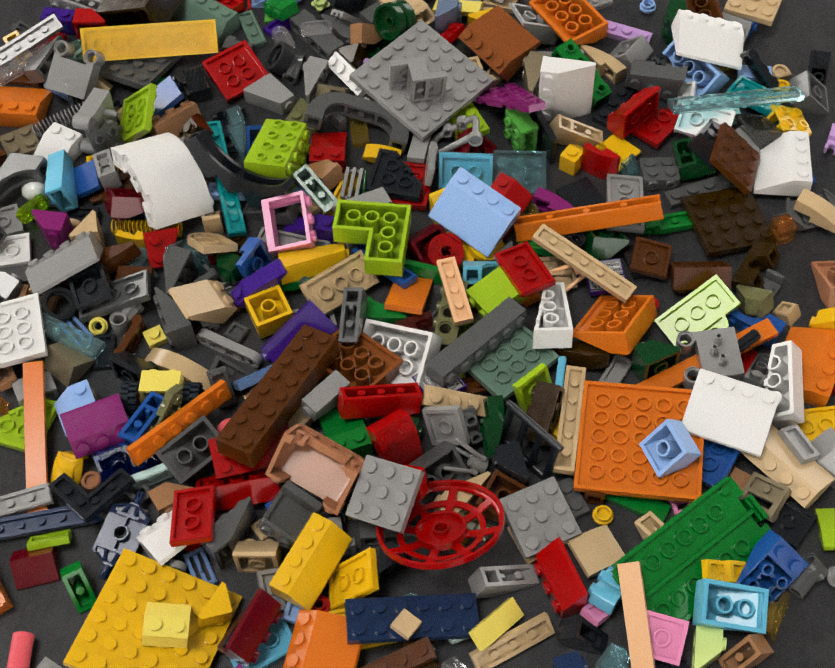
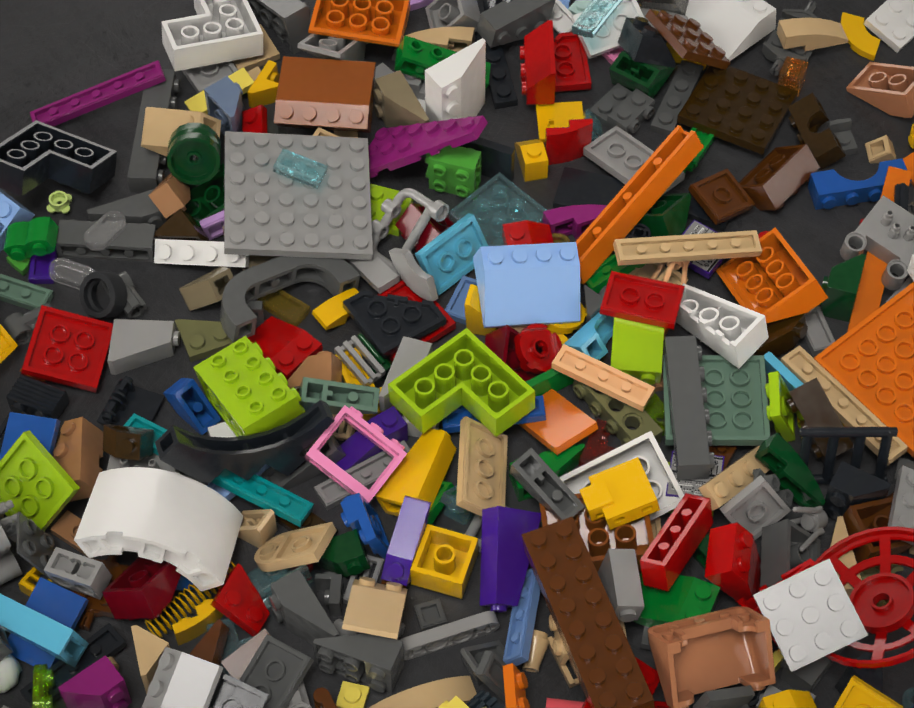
camera: 50 degrees left, 0 degrees up
(237, 130) = (159, 408): clear light blue slope -> none
(315, 72) = (161, 287): light grey slope -> none
(345, 16) = (121, 193): light grey tile -> none
(379, 350) = (620, 494): none -> yellow piece
(415, 76) = (312, 194): light grey bracket -> none
(432, 60) = (300, 168): none -> clear light blue plate
(574, 132) = (508, 128): tan slope -> none
(699, 311) = (827, 211): plate -> none
(754, 300) = (853, 161): olive slope -> none

